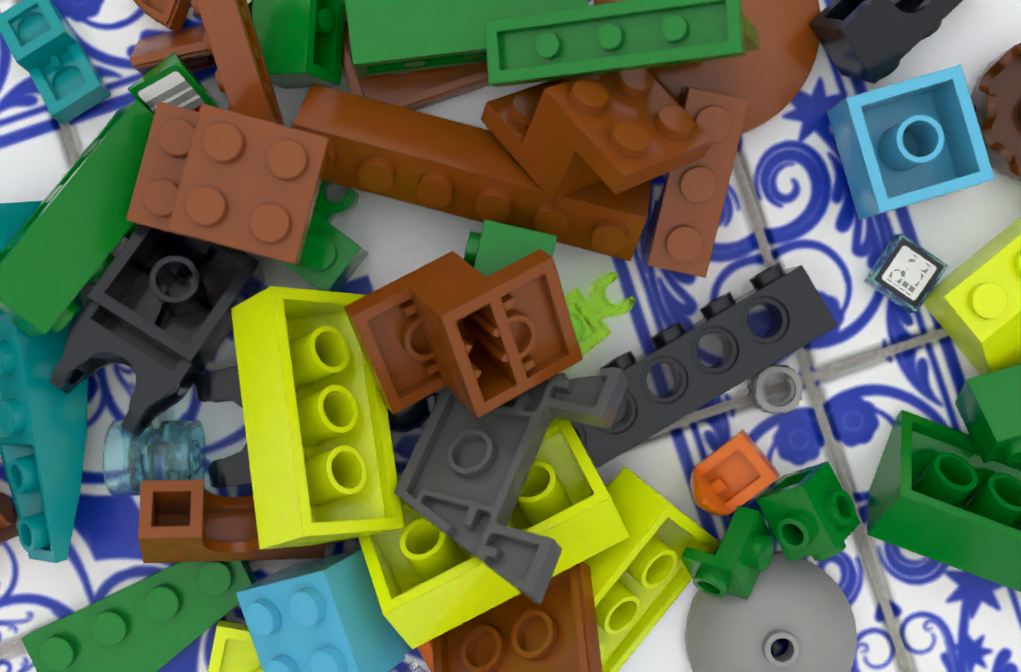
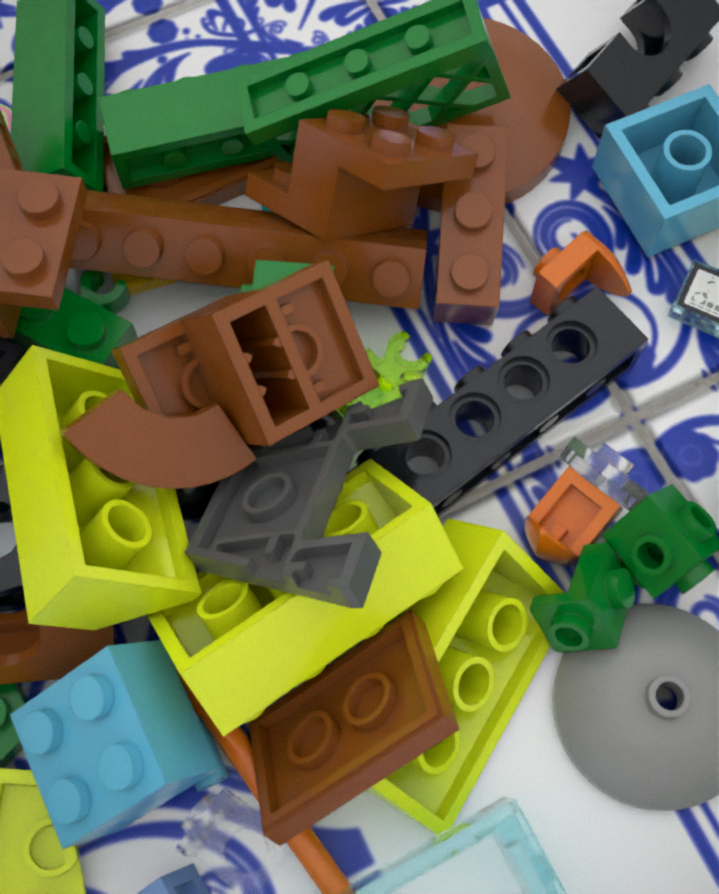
camera: 10 degrees left, 20 degrees down
(376, 400) = (158, 448): none -> dark orange tile
(769, 443) = (605, 471): none -> clear plate
(775, 230) = (564, 271): none -> orange plate
(793, 388) = (603, 409): light grey axle -> none

